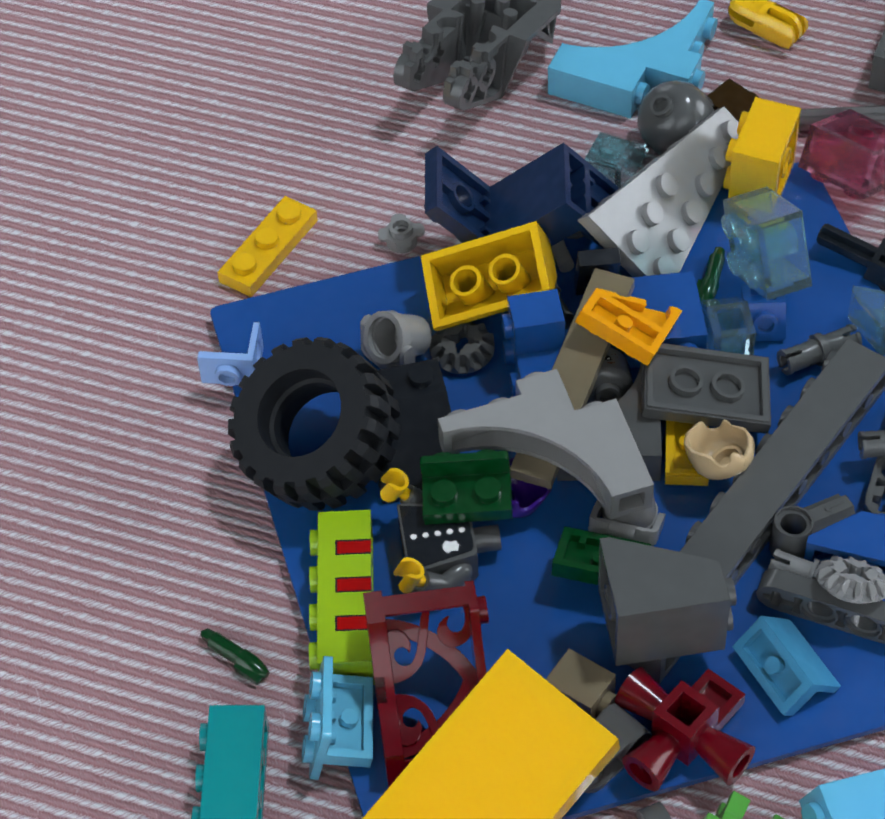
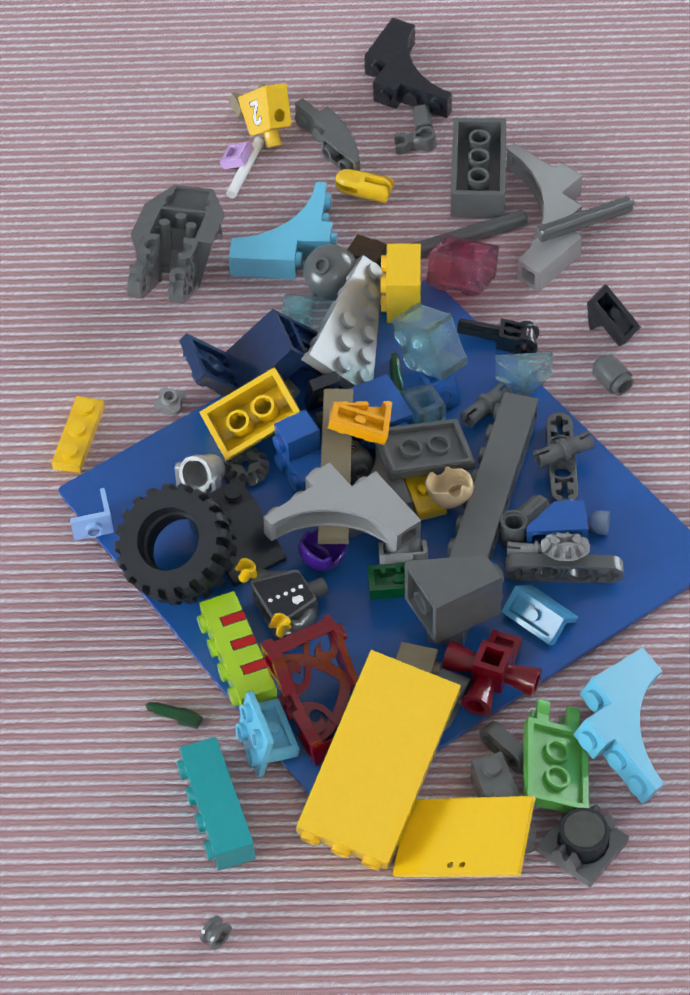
camera: 20 degrees left, 0 degrees up
(466, 487) = (295, 557): dark green bracket -> none

